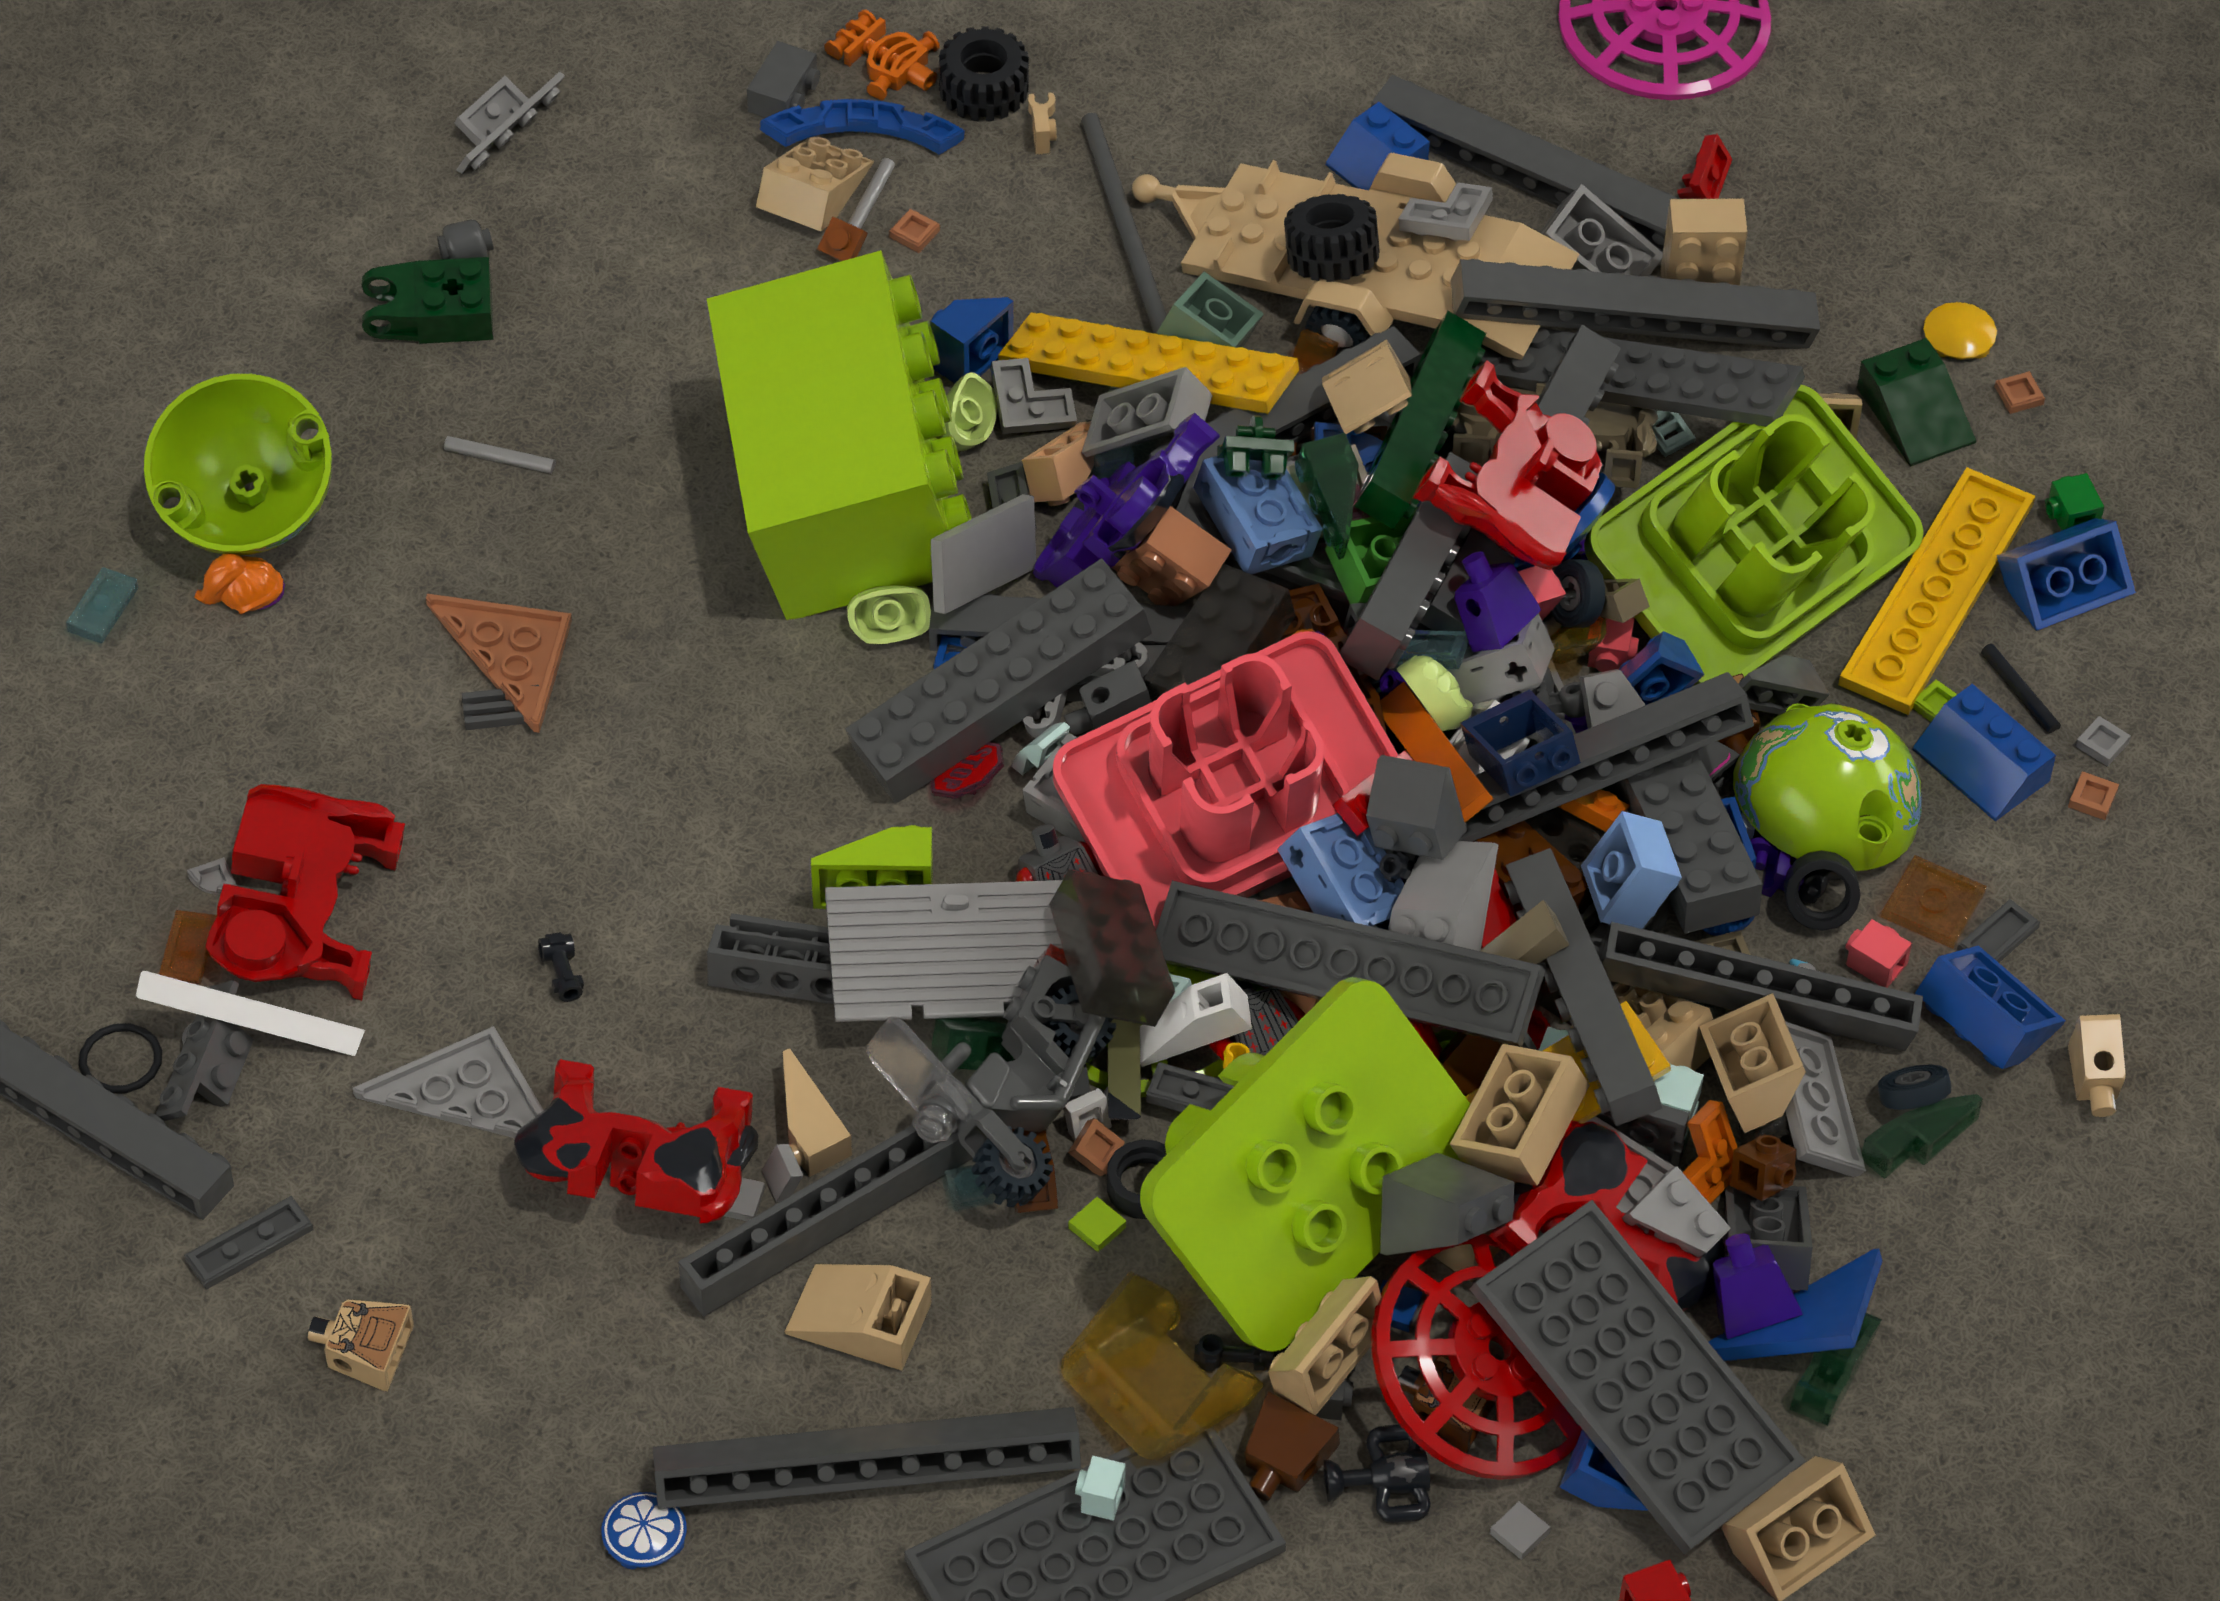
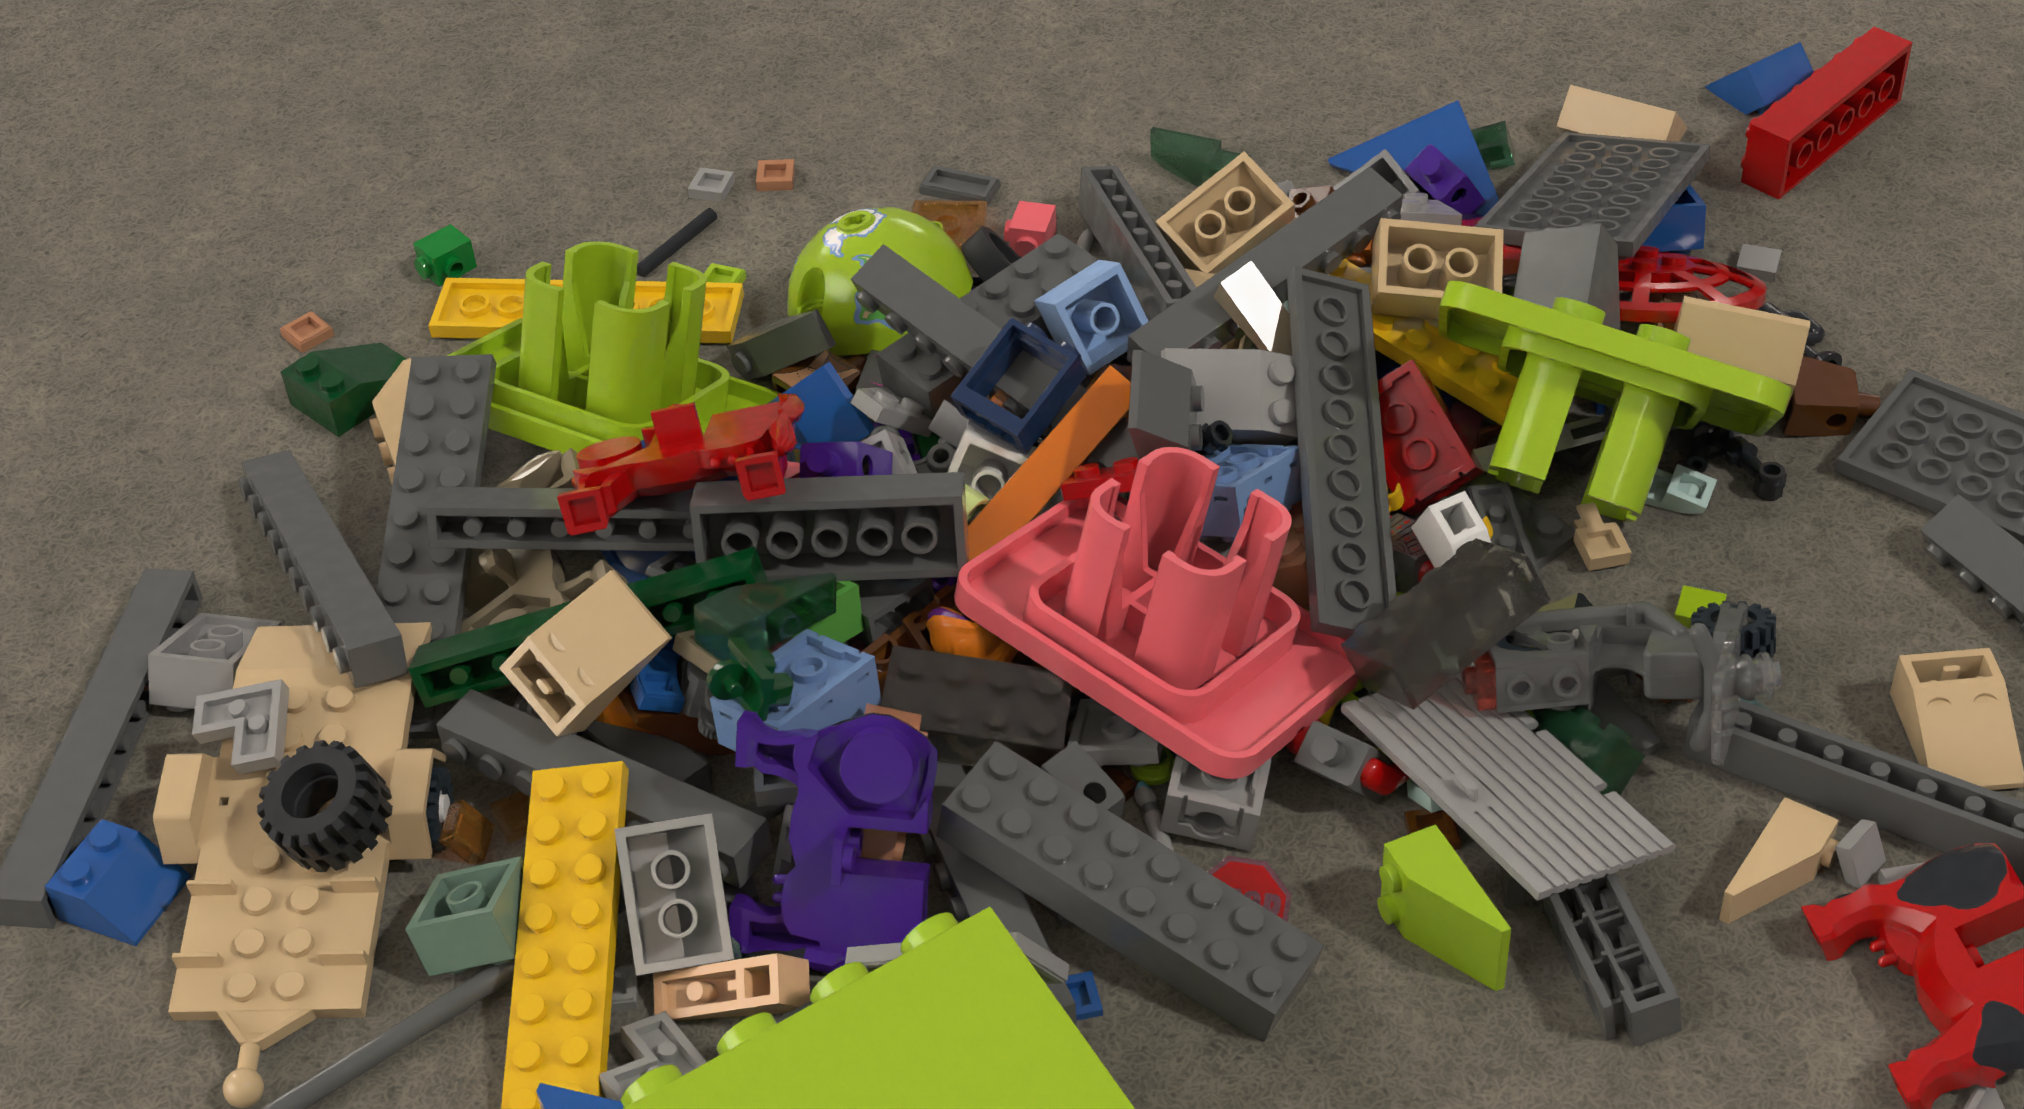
camera: 110 degrees left, 10 degrees down
(1040, 748) = (1184, 823): light aqua slope -> none
(1101, 1487) = (1987, 472): light aqua plate -> none
(1130, 1154) = (1629, 564): black tyre -> none
(1144, 1379) = (1846, 490): clear yellow windscreen -> none
(1705, 240) = (221, 536): tan brick -> none
(1710, 171) = (52, 609): red plate -> none
(1914, 1086) = (1177, 175): black bush -> none
(1960, 331) = (239, 387): yellow dish -> none
(1985, 753) = (768, 229): blue slope -> none
(1988, 1006) = (1048, 158): blue slope -> none
(2067, 572) = (516, 237): blue slope -> none
(2098, 1061) = (1067, 89): tan torso -> none

